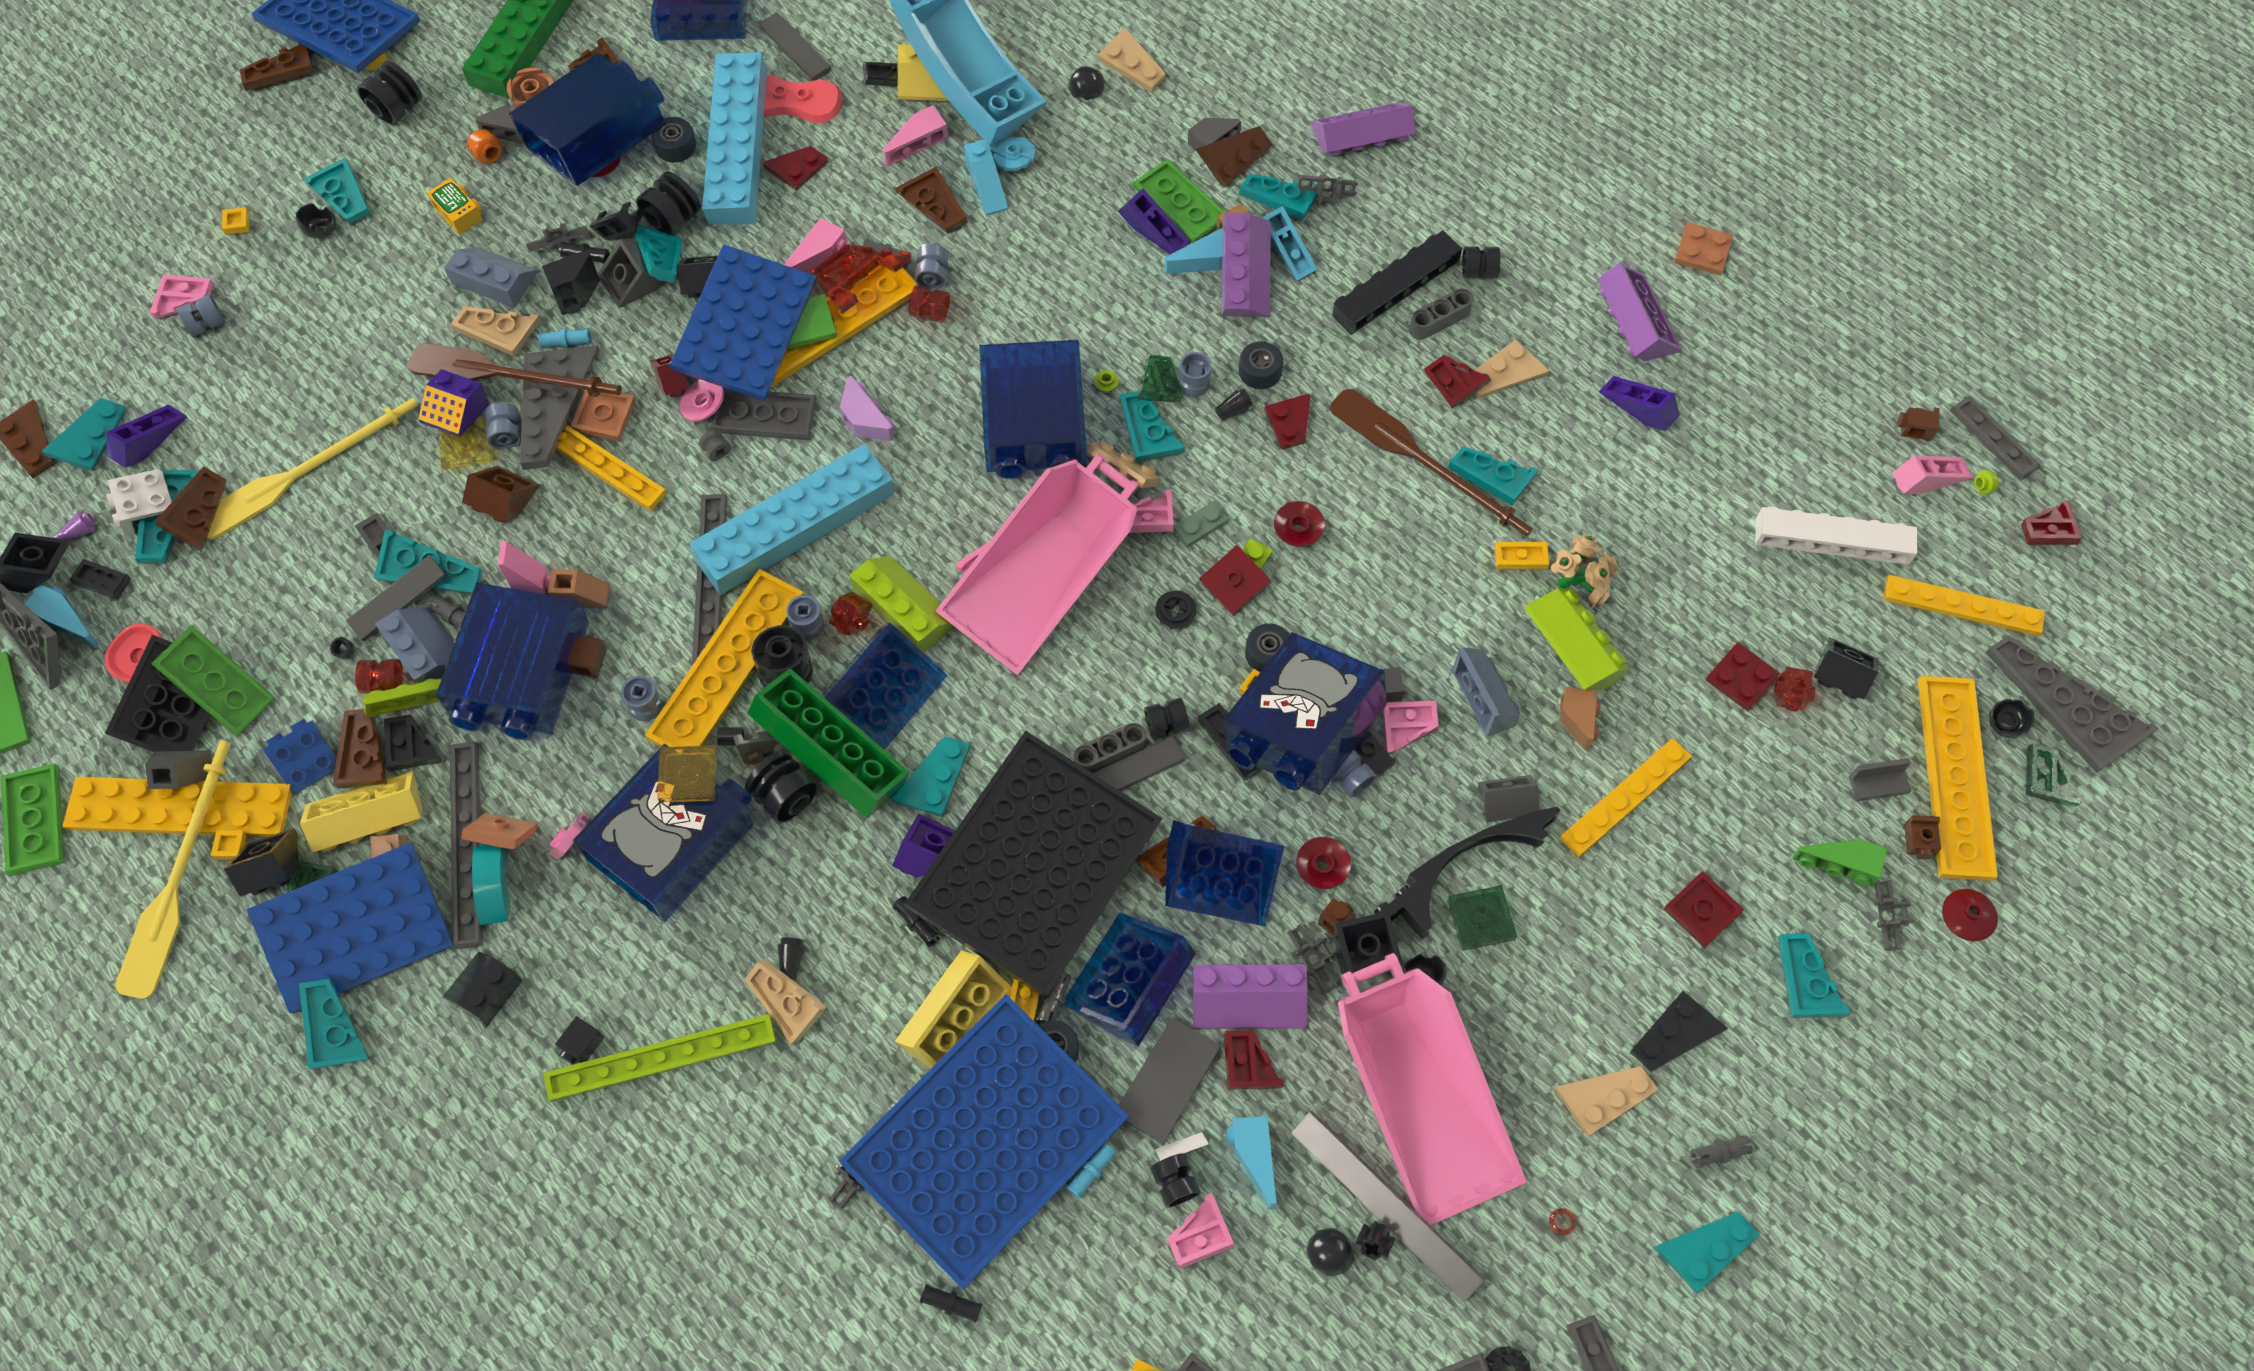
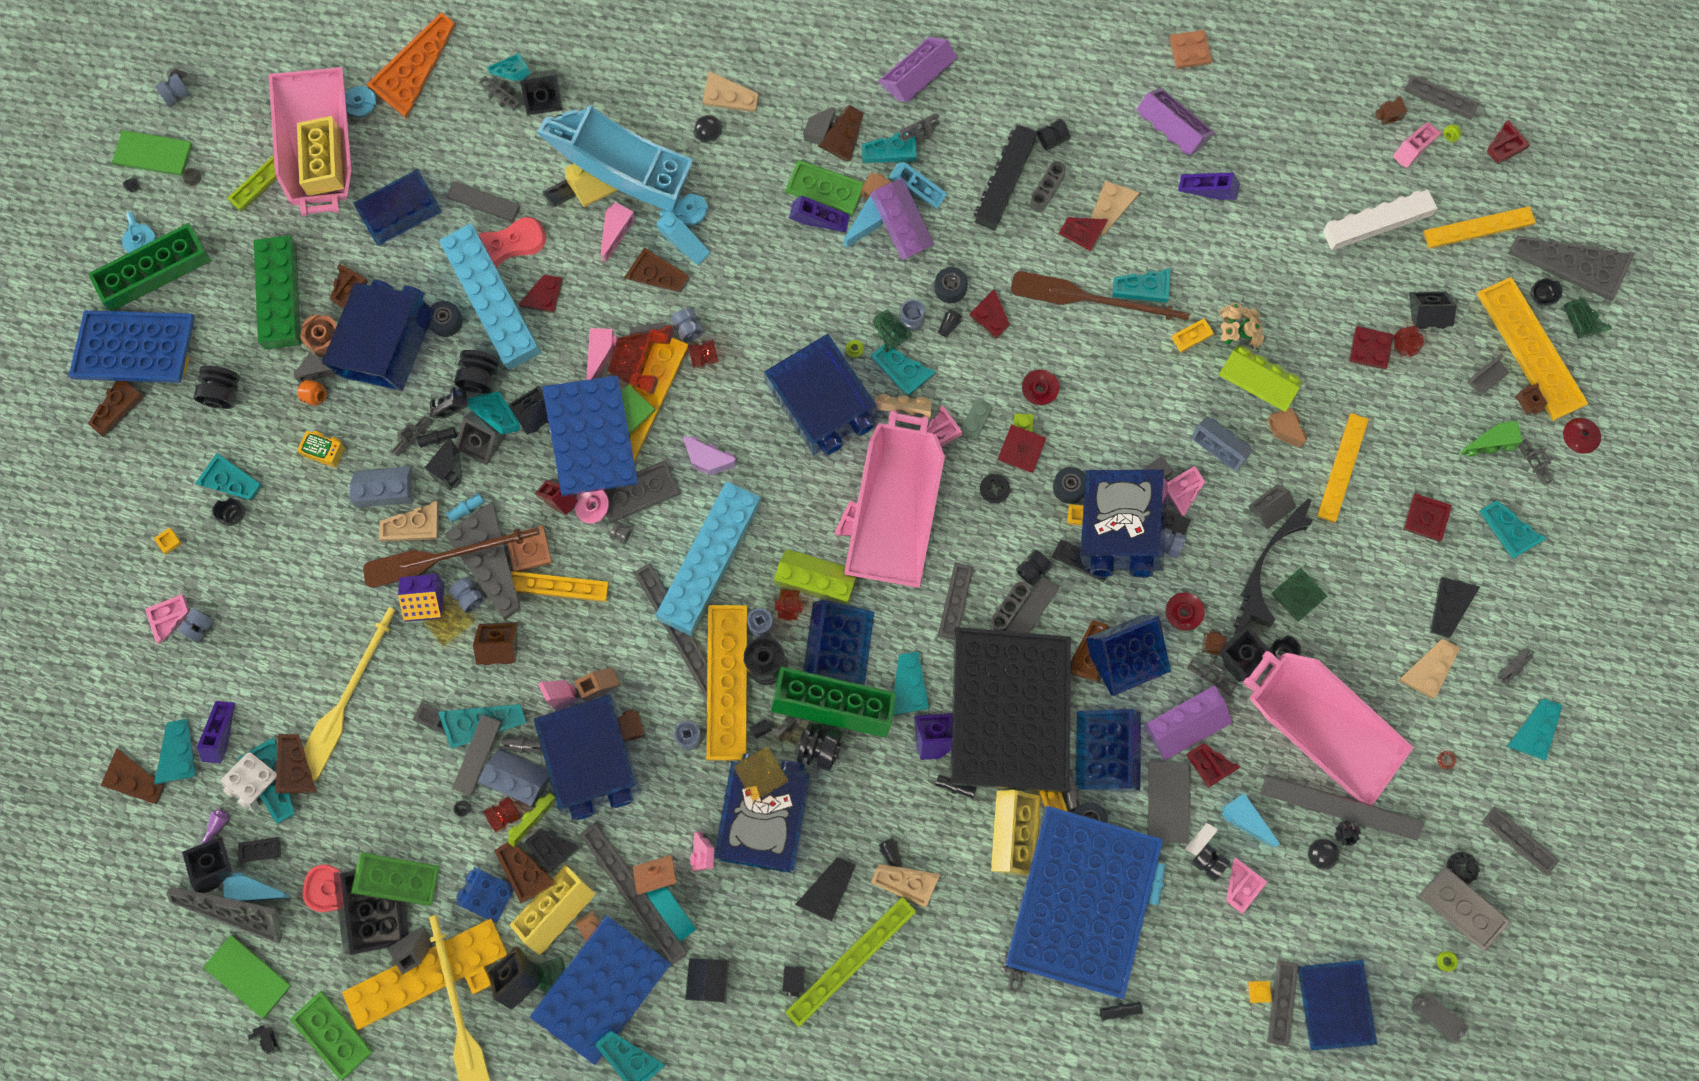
camera: 25 degrees left, 10 degrees up
(689, 961) = (828, 890): none -> black wing
(1053, 707) = (955, 600): none -> dark grey tile

